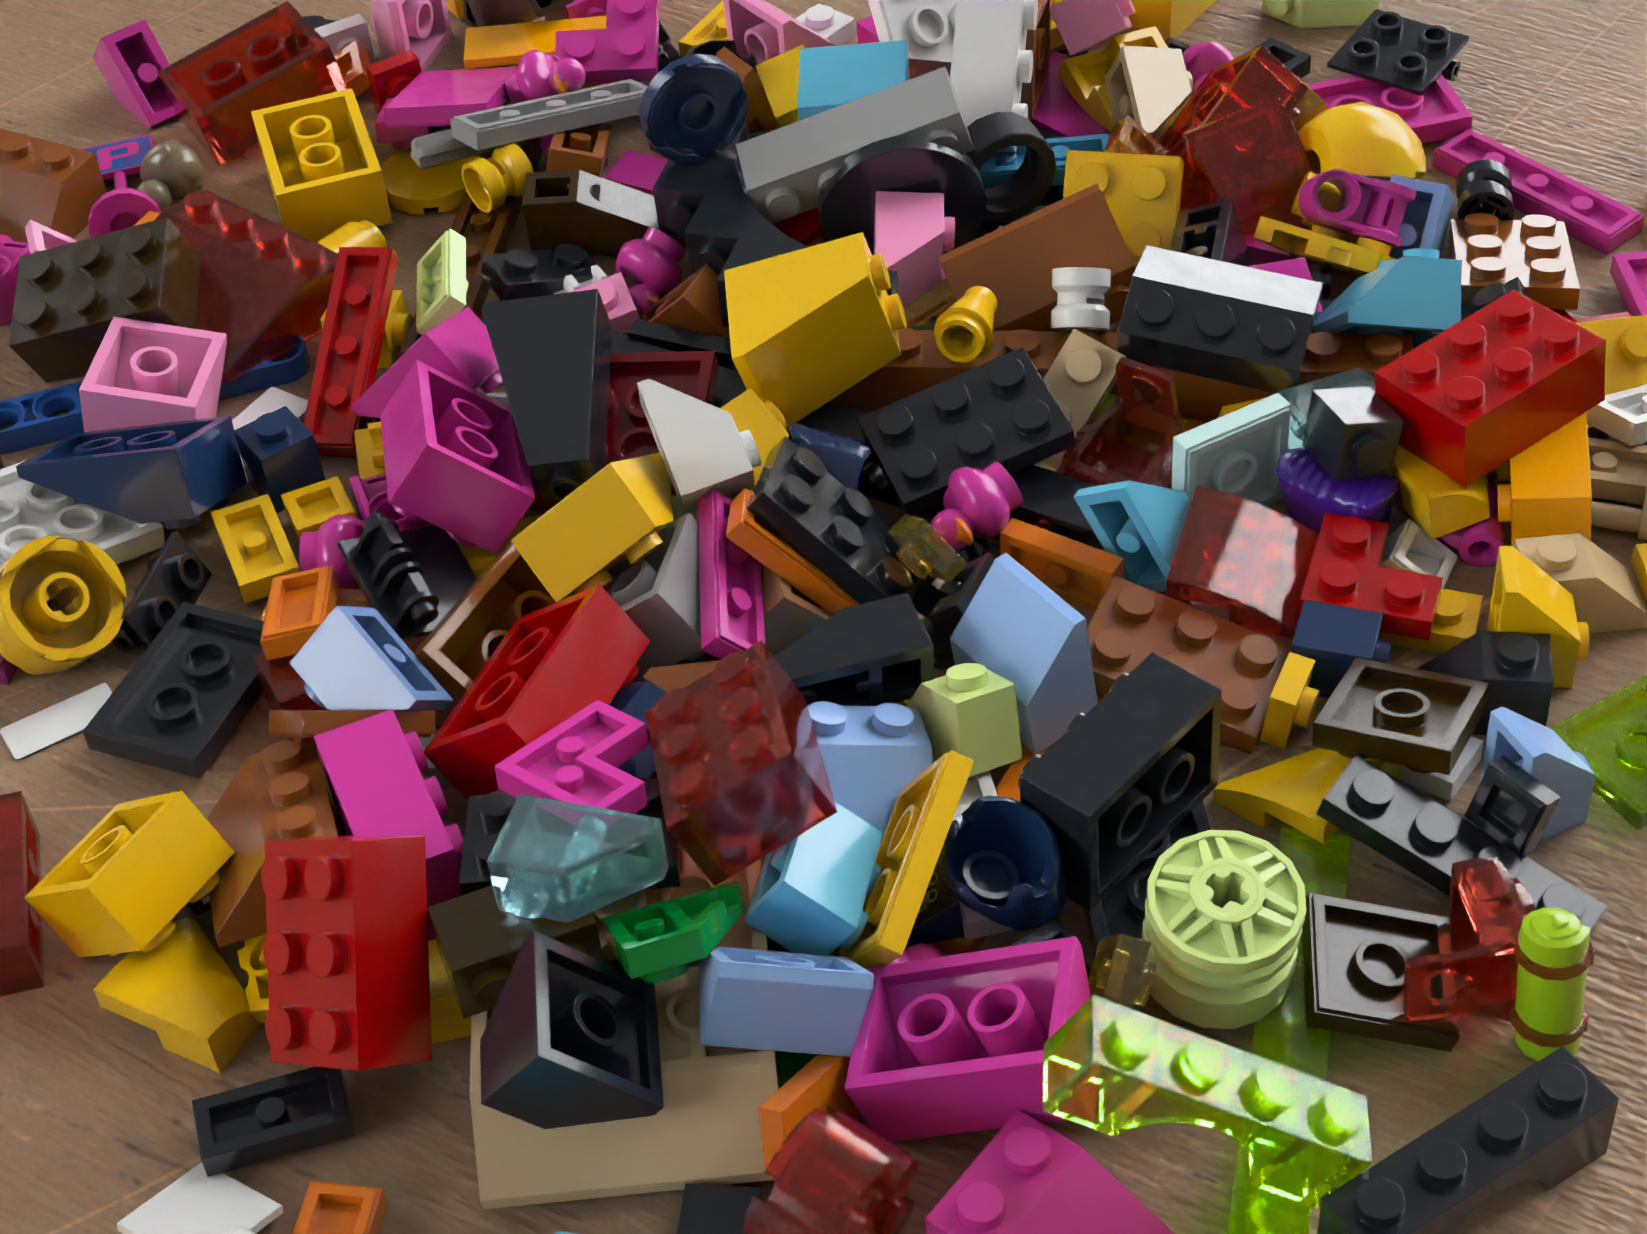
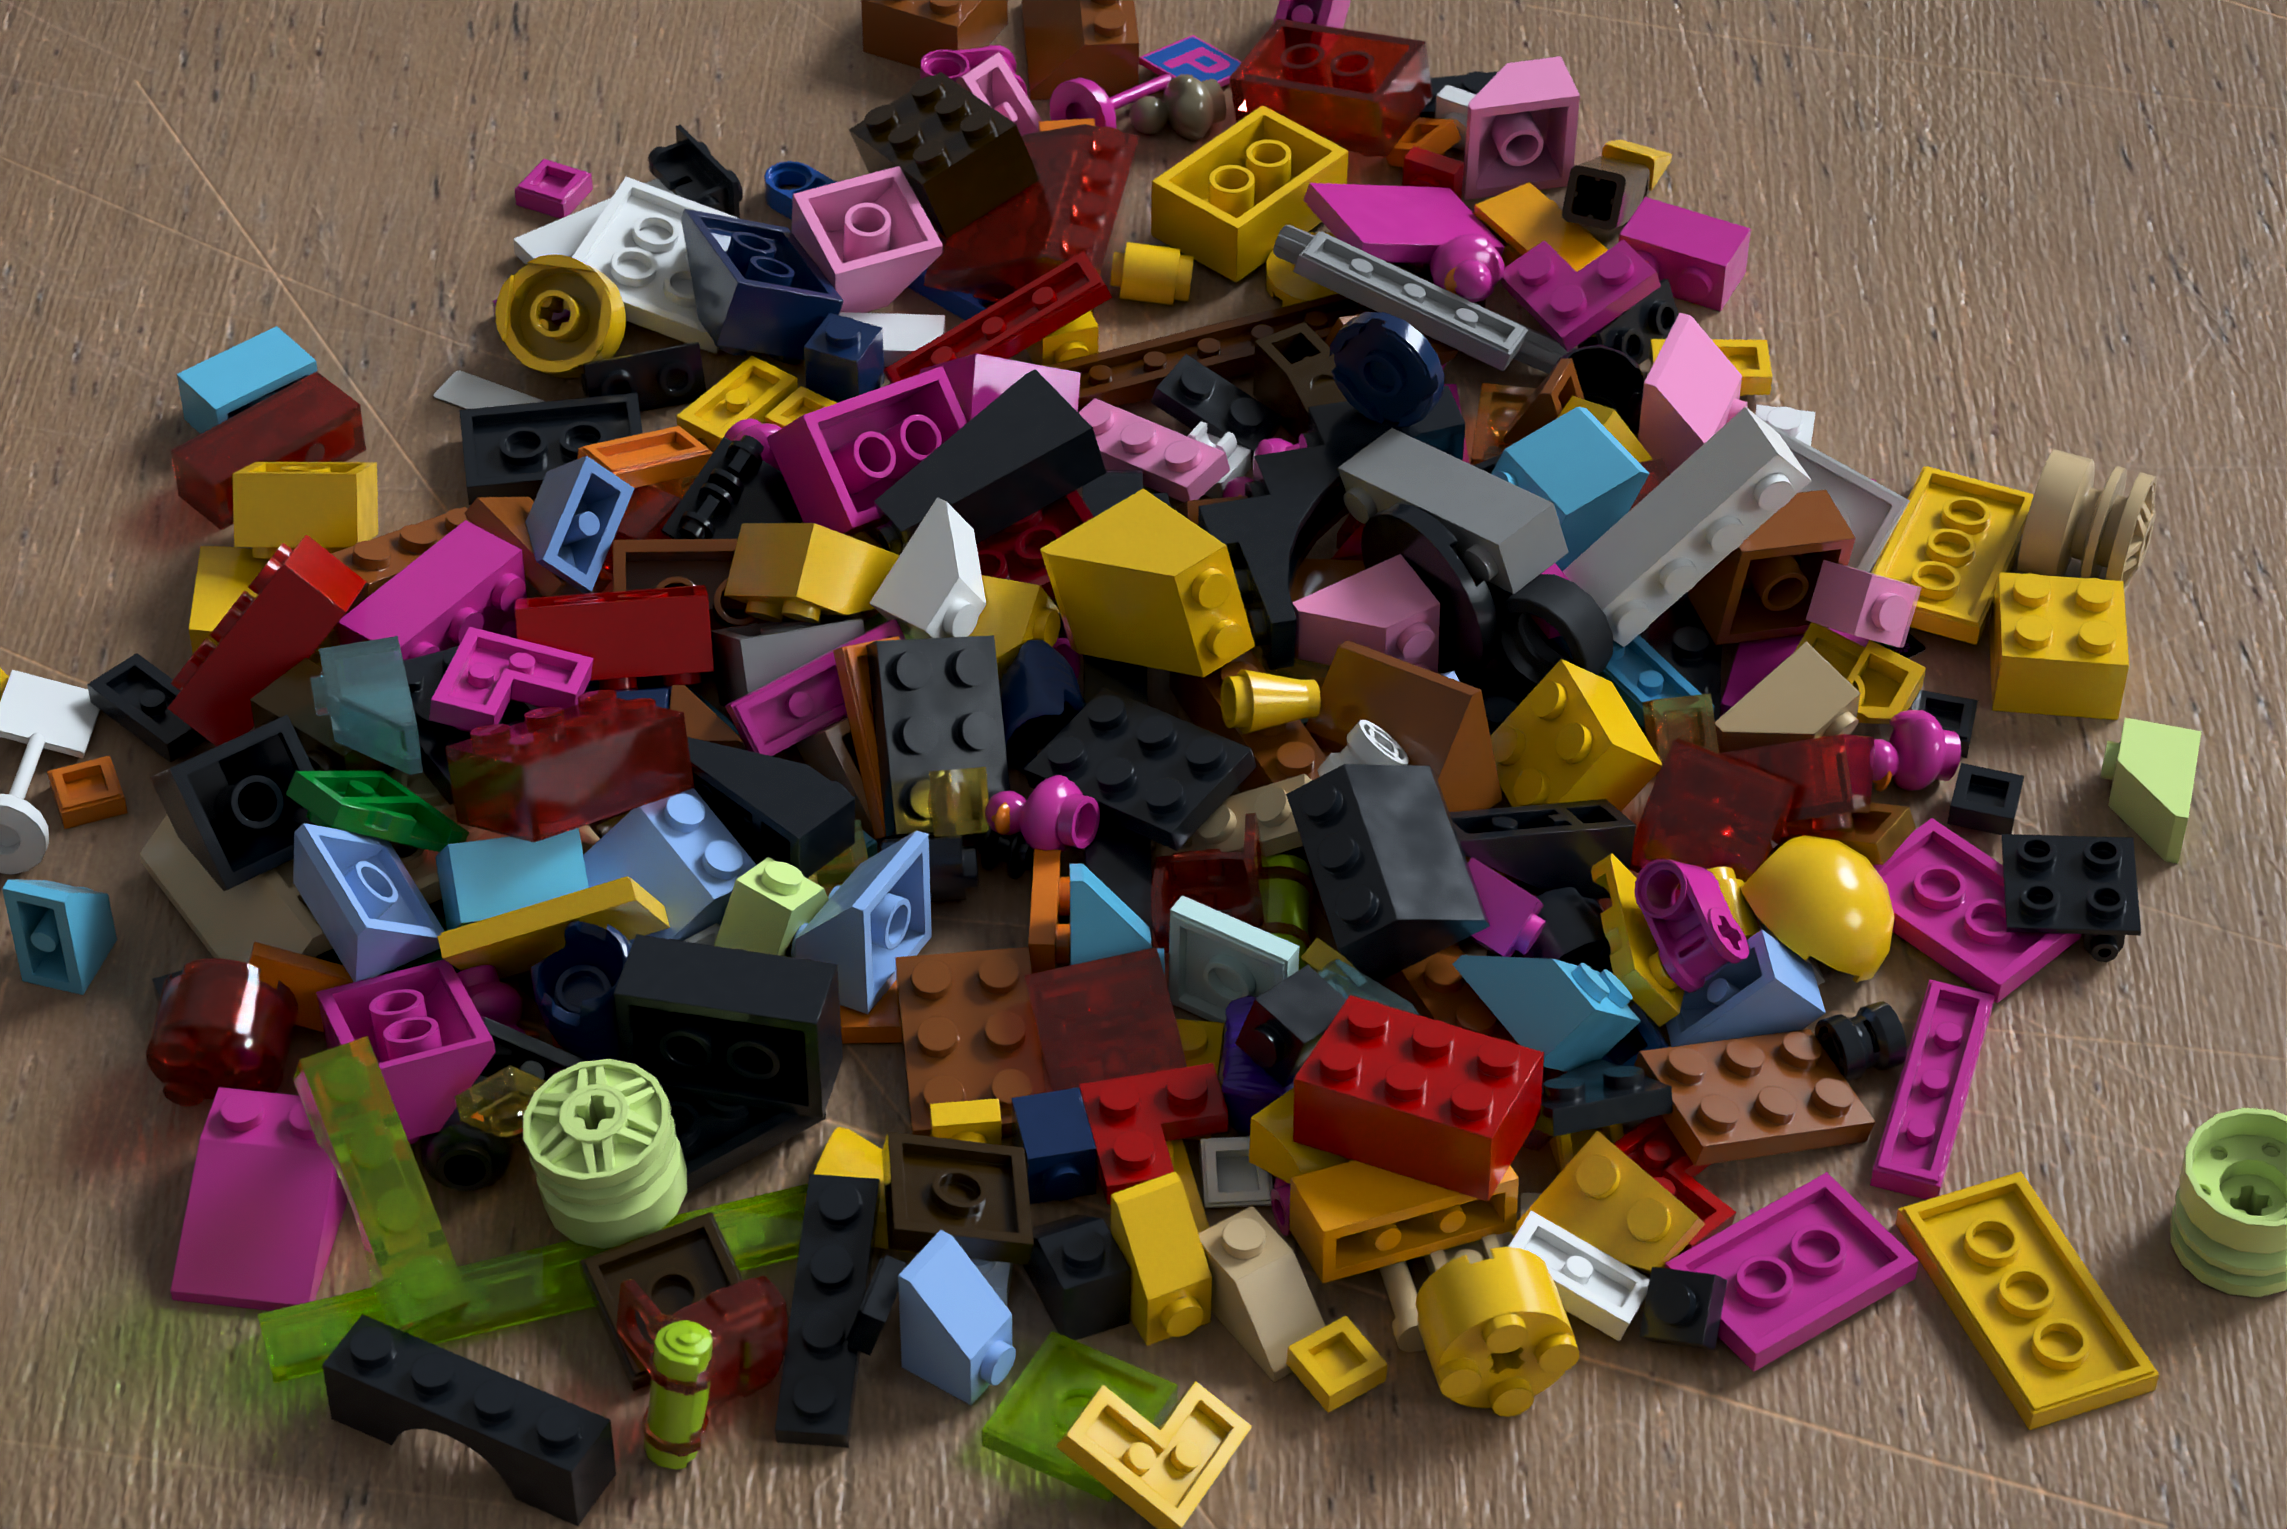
camera: 55 degrees right, 0 degrees up
(441, 281) = (1124, 346): yellowish green plate -> none
(497, 177) = (1295, 304): yellow wheel -> none

